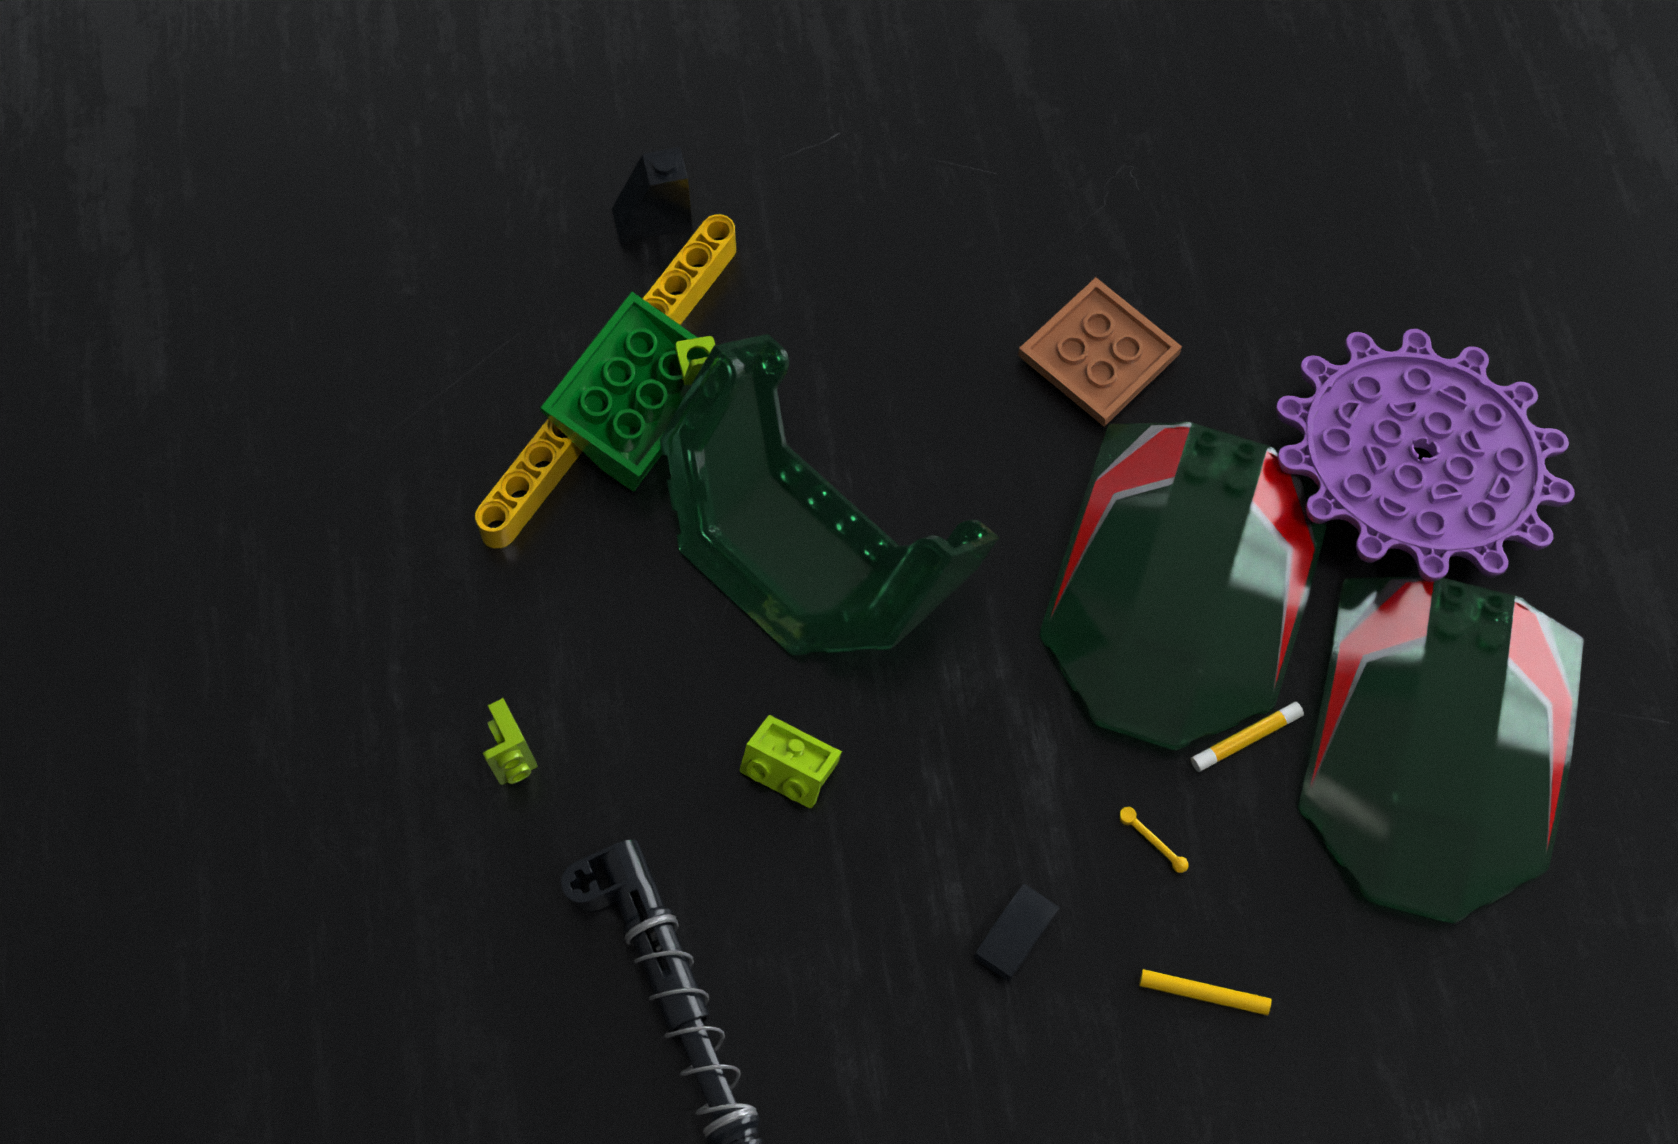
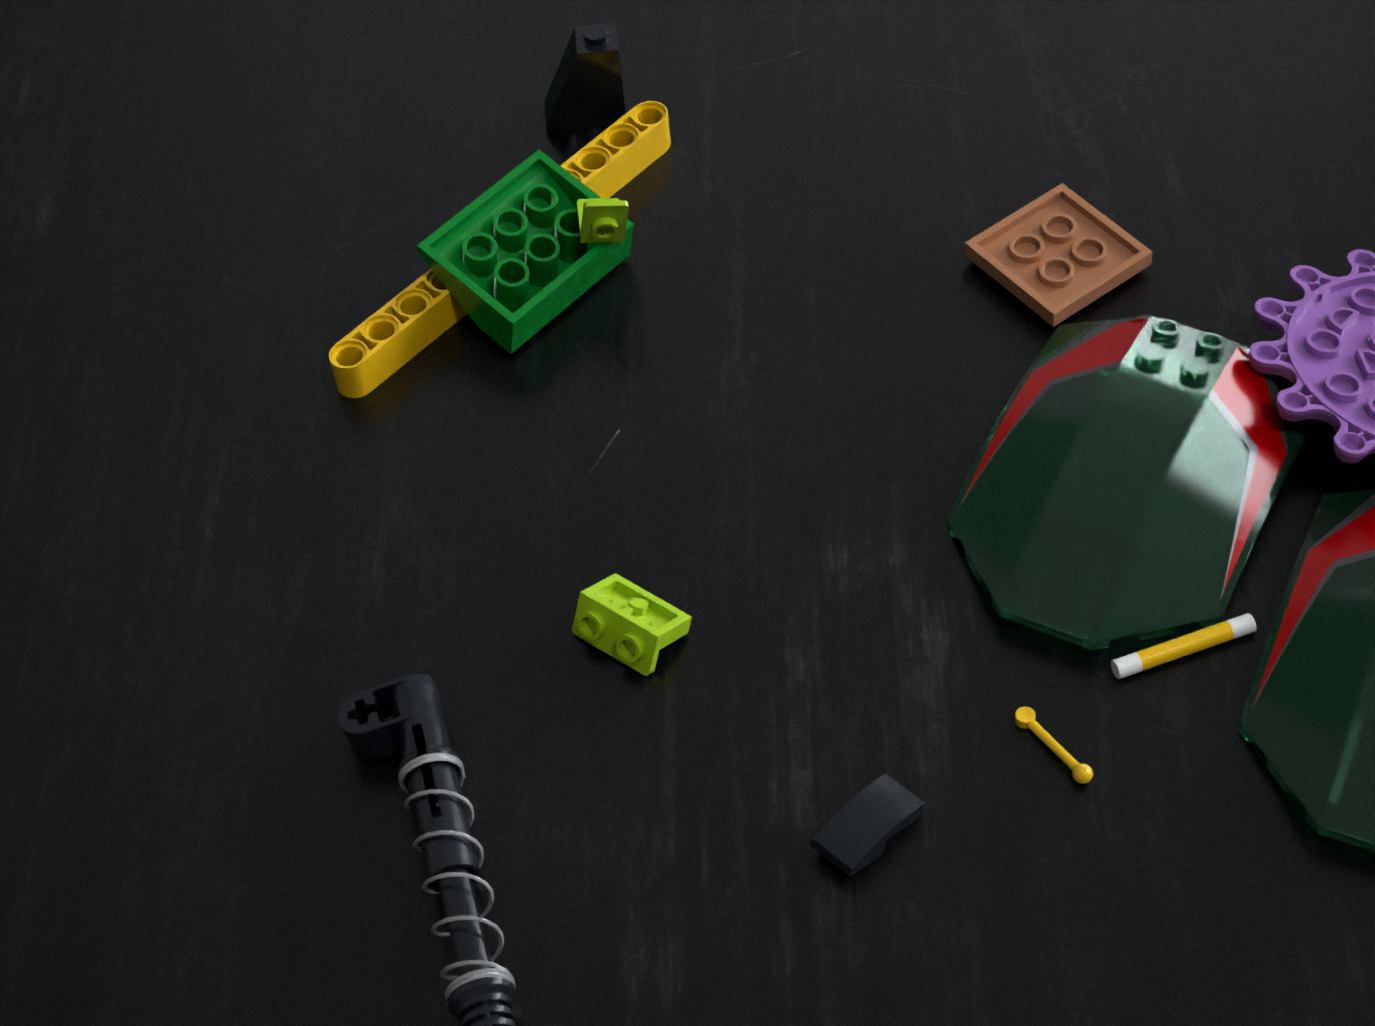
camera: 15 degrees right, 15 degrees down
(511, 758) = (309, 573): lime bracket -> none
(781, 532) = (658, 393): clear green windscreen -> none
(1205, 992) = (1096, 916): yellow bar -> none

